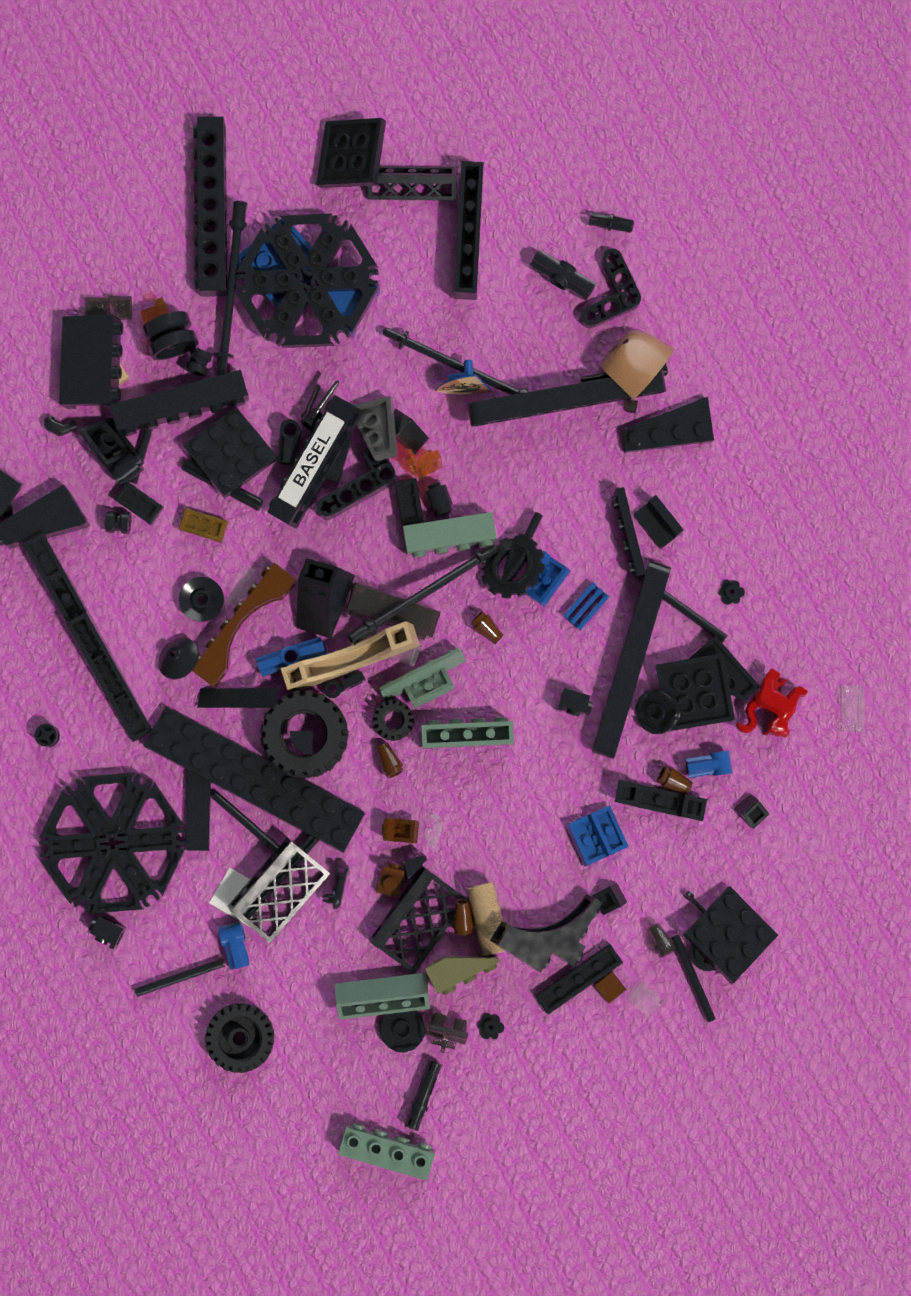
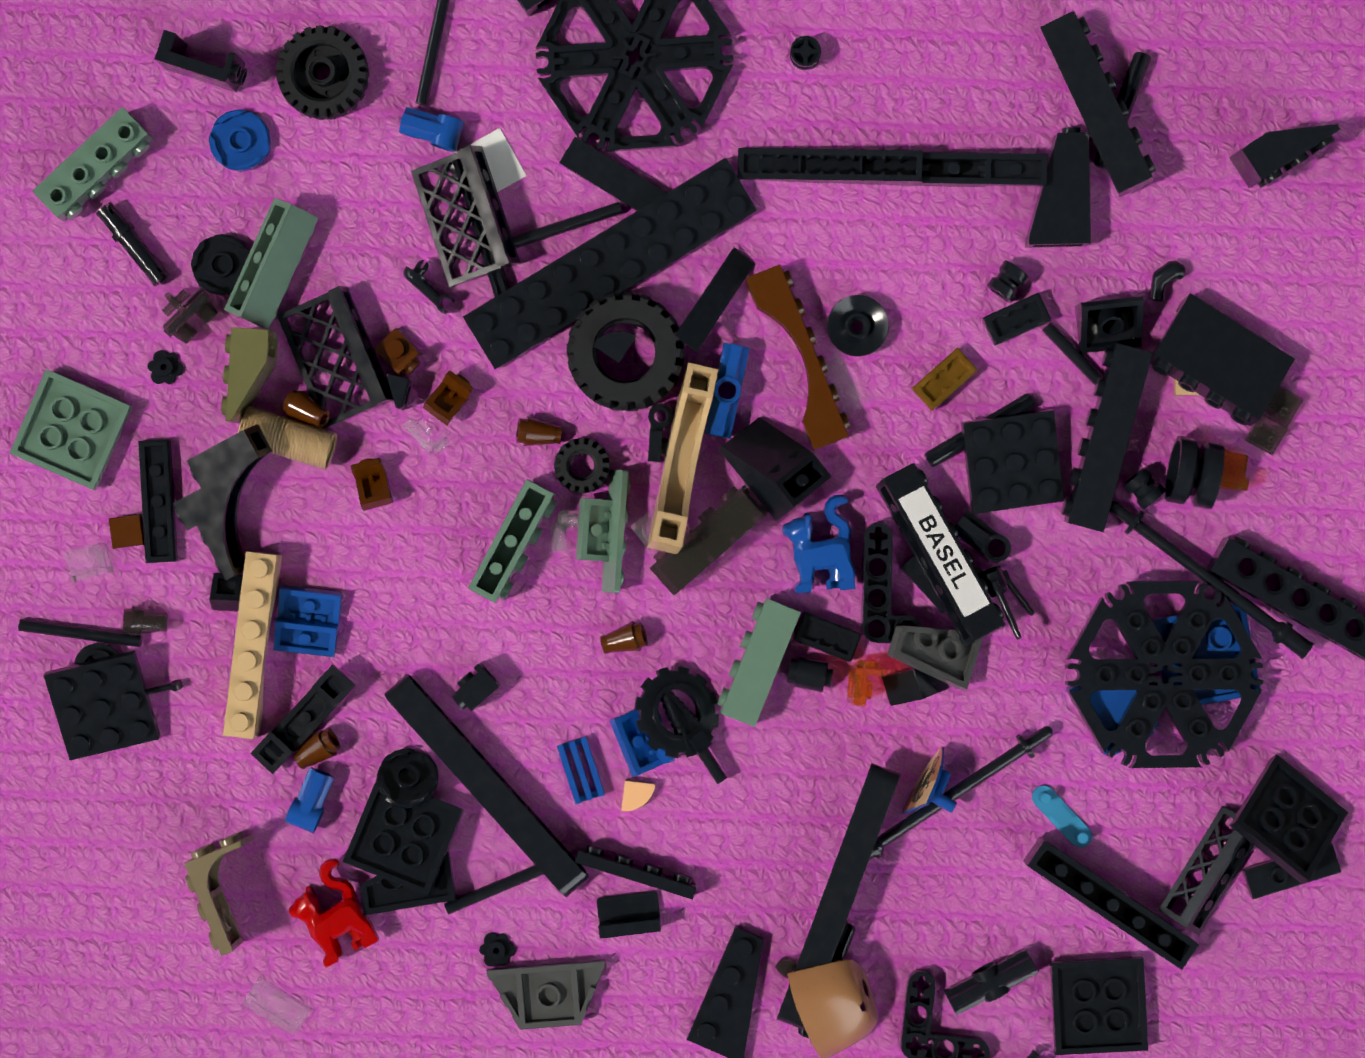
camera: 120 degrees right, 5 degrees up
(127, 468) = (1065, 329): black brick -> none
(178, 658) = (795, 262): black dish -> none
(289, 1139) = (171, 56): none -> black panel
(315, 1066) = (240, 140): none -> blue tile
(357, 533) = (822, 554): none -> blue animal
(370, 627) = (701, 502): black bar -> none
(393, 144) = (1271, 878): none -> black plate
(434, 293) = (1061, 816): none -> dark azure piece
(441, 710) = (559, 527): none -> clear arm
(484, 846) = (372, 483): none -> reddish brown bracket
(537, 201) = (1099, 1005): none -> black plate
(566, 1063) = (70, 429): none -> sand green plate
(580, 562) = (636, 794): none -> light nougat tile
(633, 861) = (250, 646): none -> tan arch
(738, 543) = (547, 992): none -> dark grey wing
(752, 811) = (229, 817): black slope -> none
(801, 801) = (213, 905): none -> dark tan bracket

